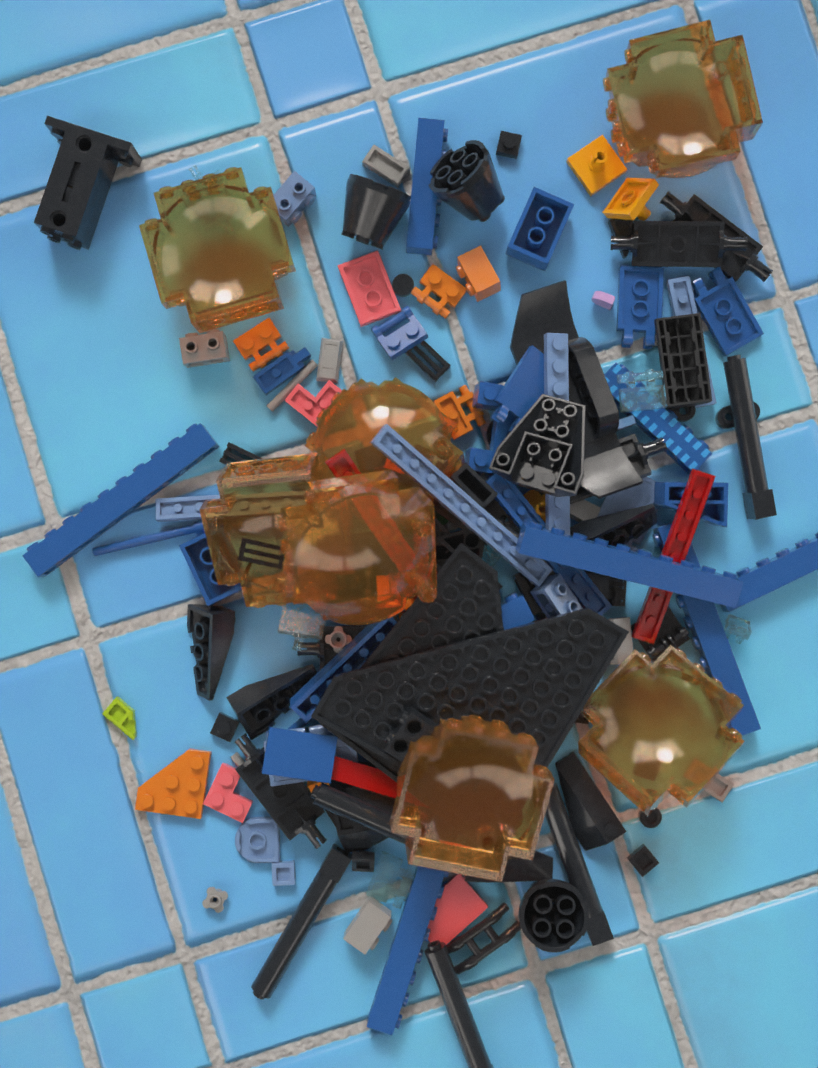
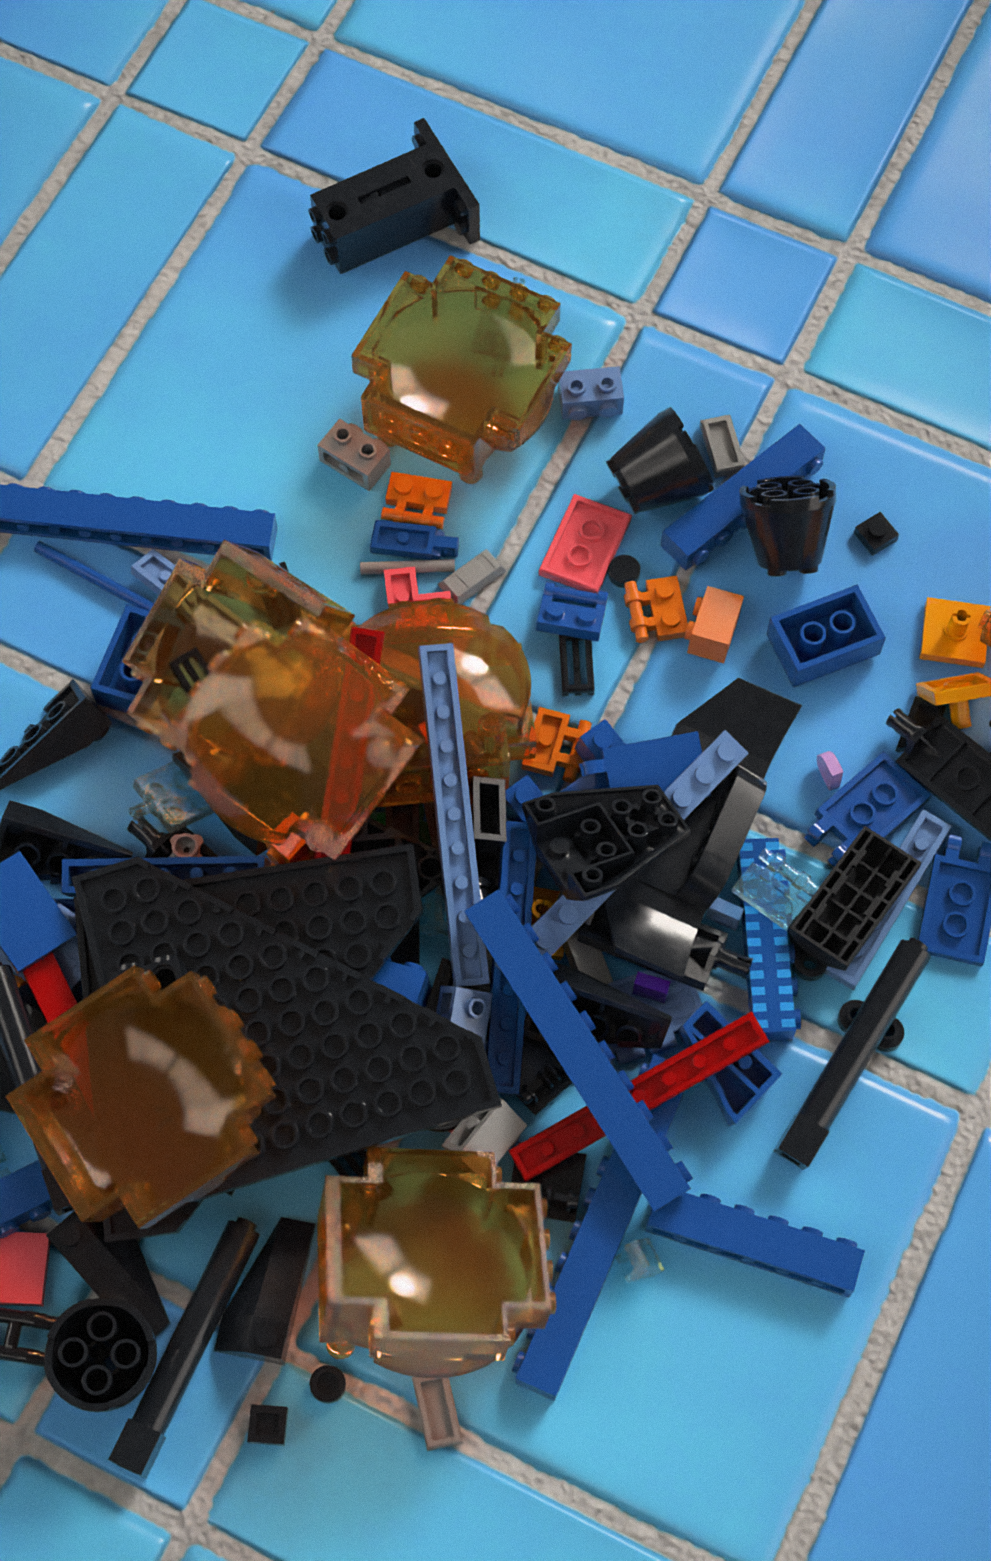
camera: 40 degrees right, 20 degrees down
(624, 496) = (651, 987): none -> dark purple tile

